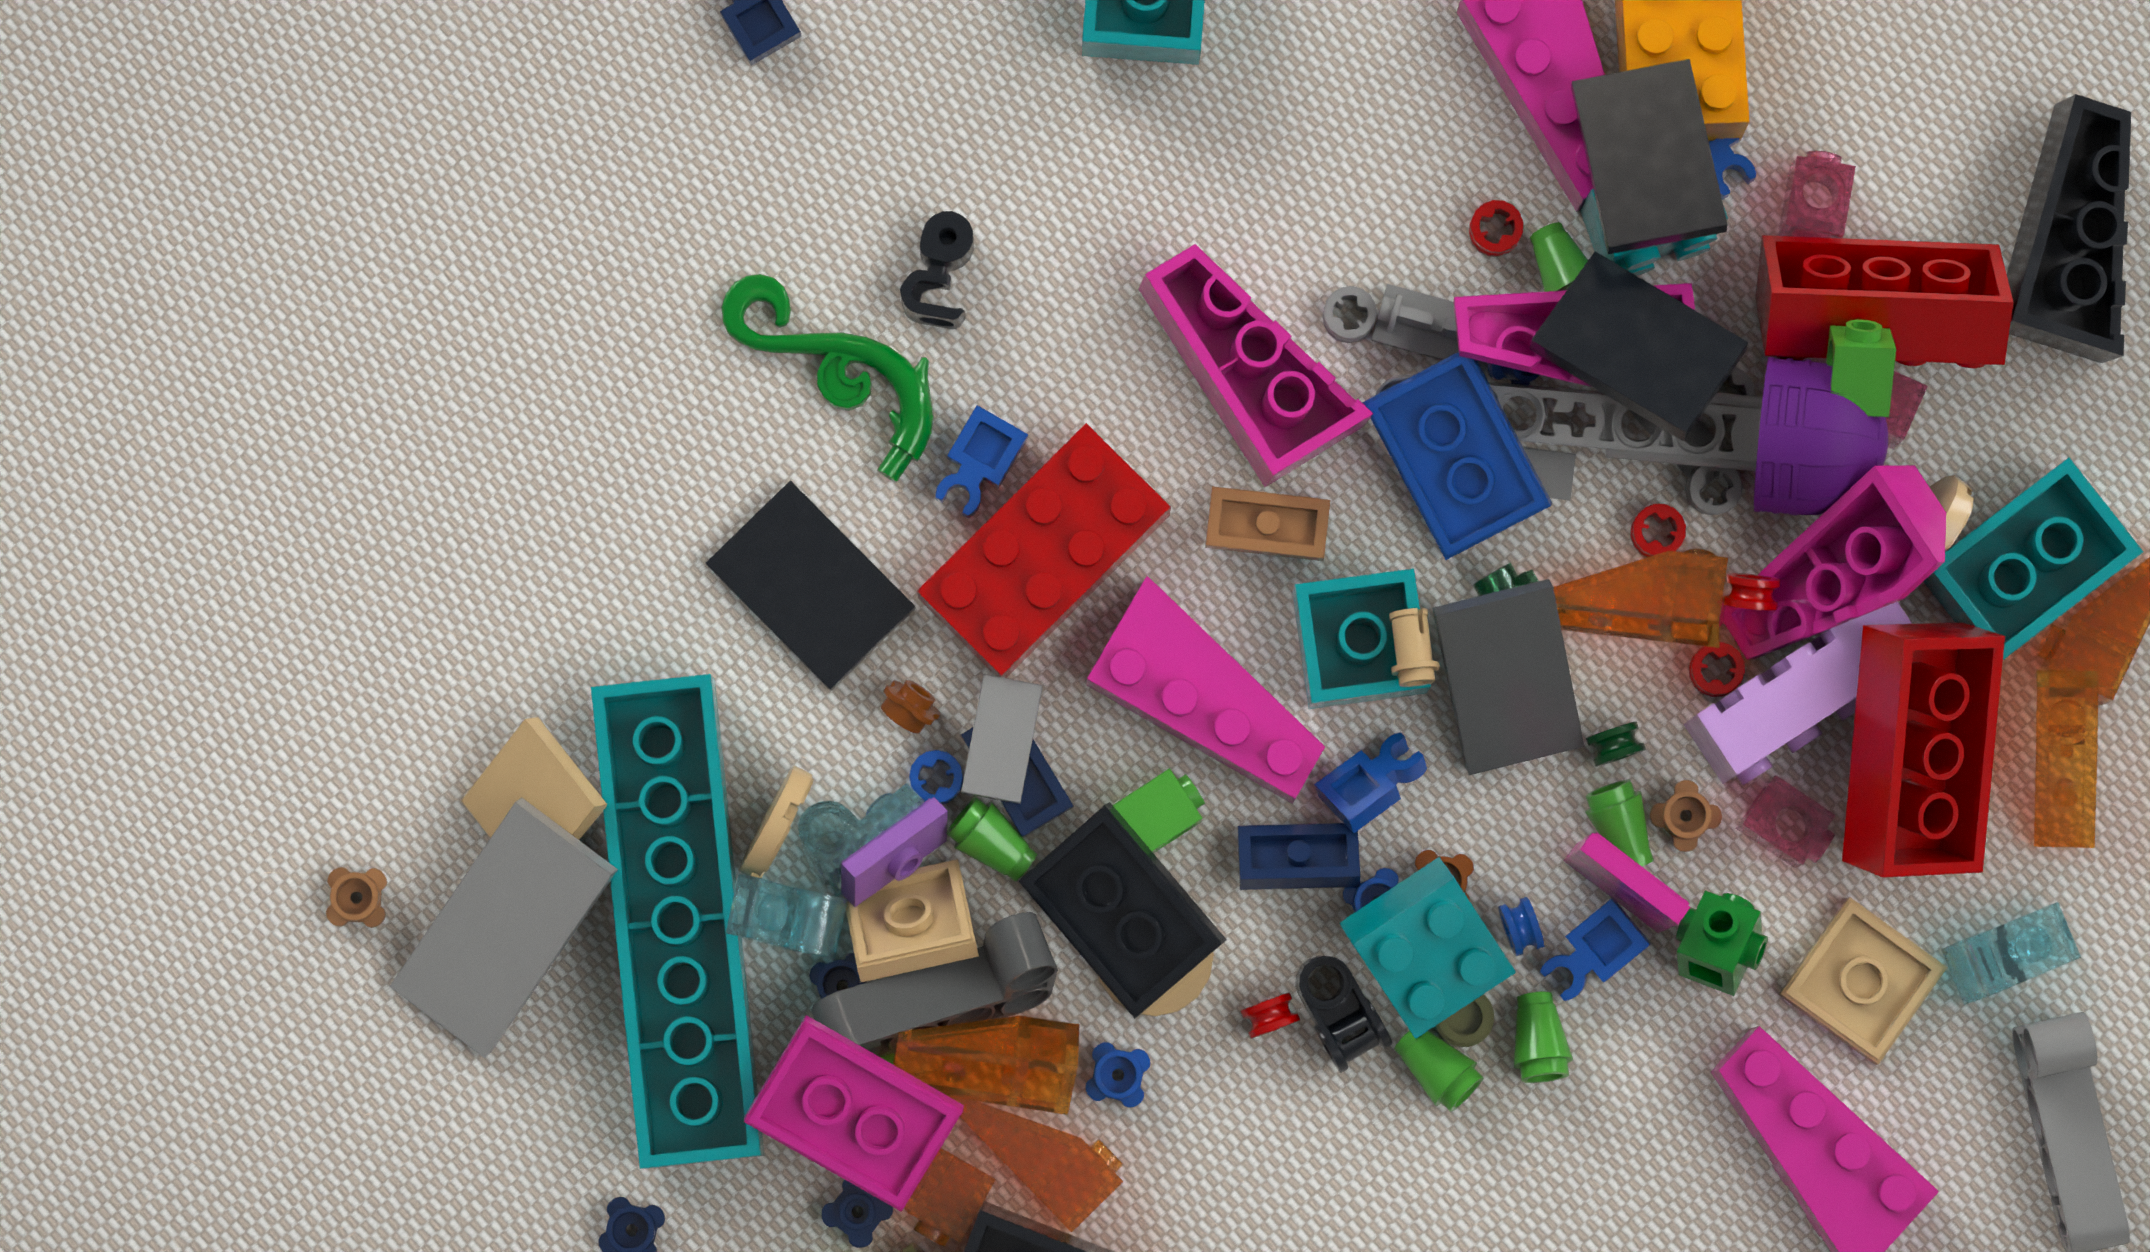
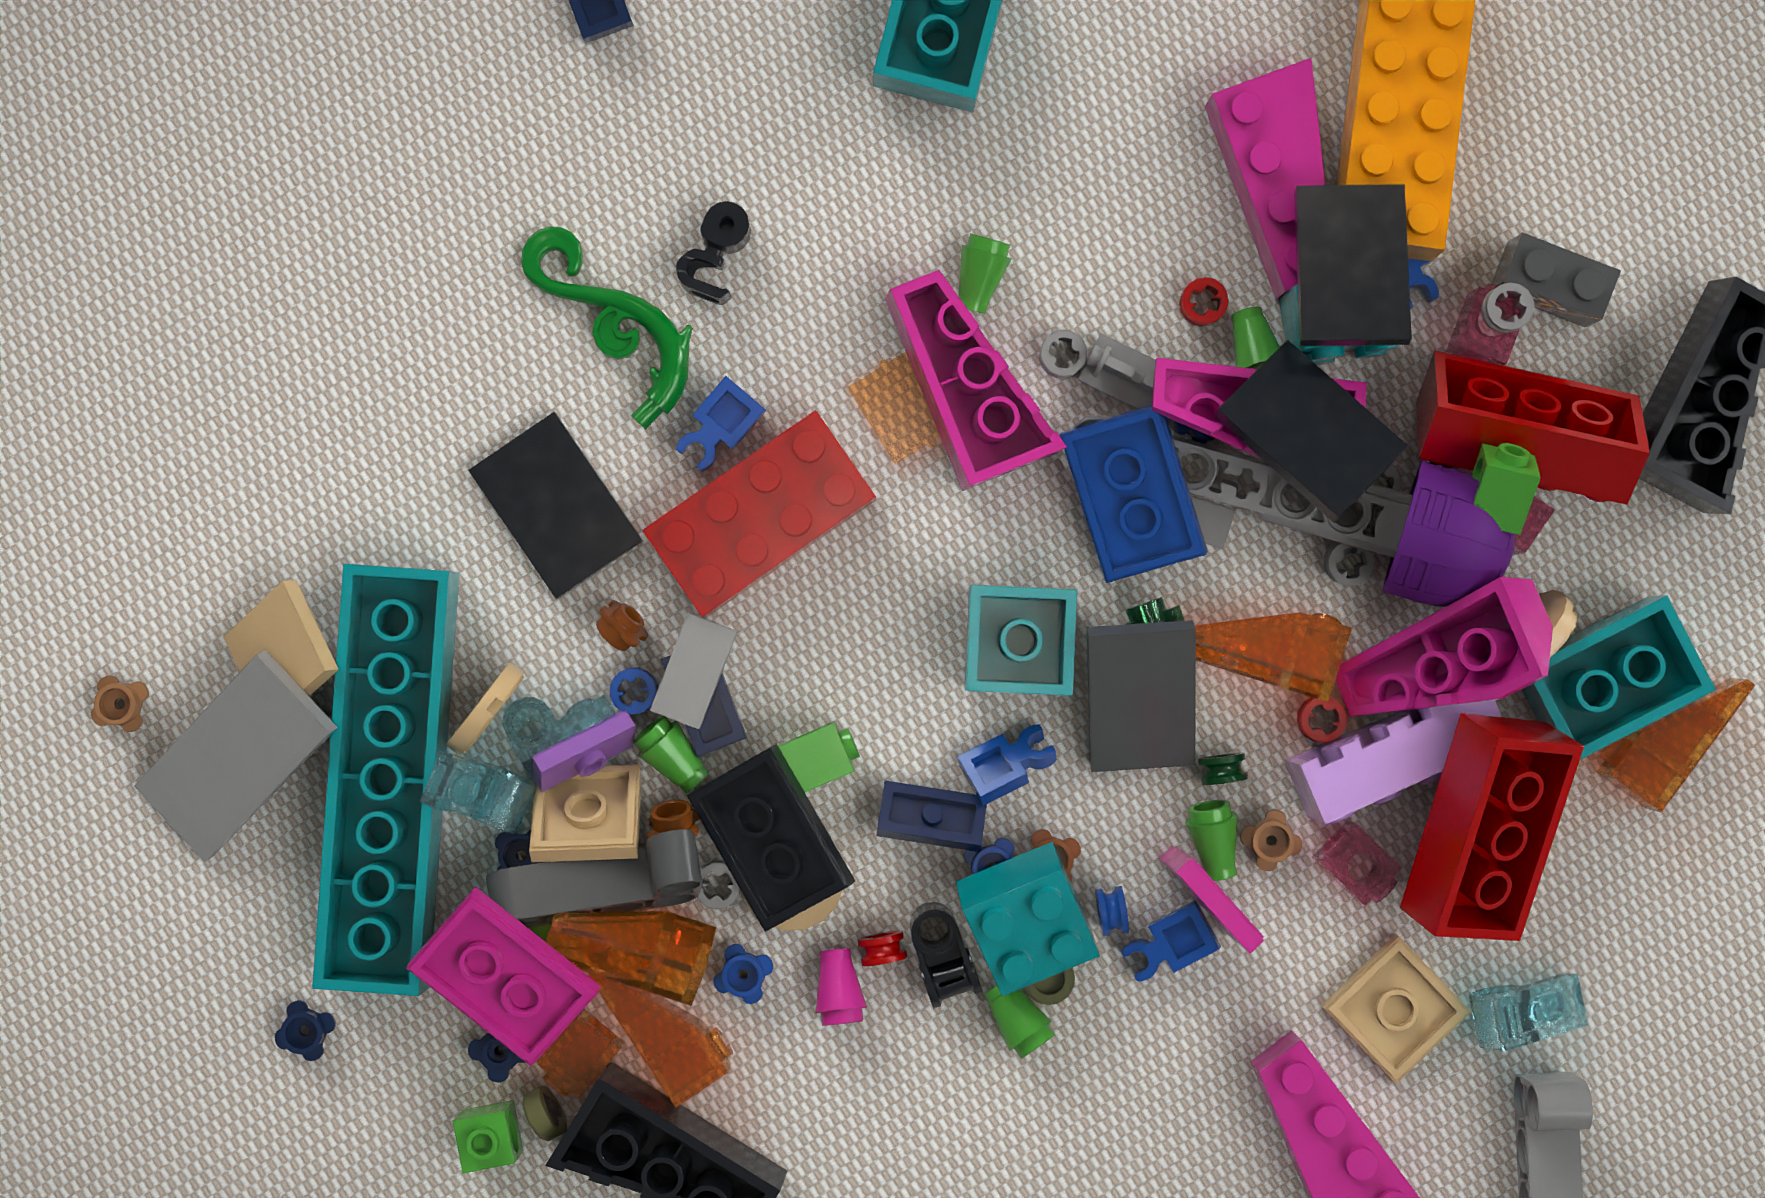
camera: 15 degrees right, 5 degrees up
(1004, 905) = (672, 815): none -> dark orange plate
(1074, 998) = (717, 901): none -> light grey bush
(1173, 409) = (896, 408): none -> clear orange piece
(1193, 689) = (866, 655): dark pink wedge -> none
(1229, 1071) = (839, 989): none -> dark pink cone
(1241, 237) = (981, 271): none -> bright green cone
(1267, 523) = (958, 523): medium nougat plate -> none
(1412, 648) = (1063, 660): tan pin -> none
(1540, 1040) = (1110, 1010): bright green cone -> none
(1661, 513) = (1299, 575): red bush -> none
(1720, 941) = (1278, 973): green brick -> none
(1751, 591) = (1367, 662): red bush -> none
(1847, 165) = (1522, 302): none -> light grey bush
(1882, 133) = (1558, 279): none -> dark grey brick
(2065, 758) = (1612, 852): clear orange slope -> none

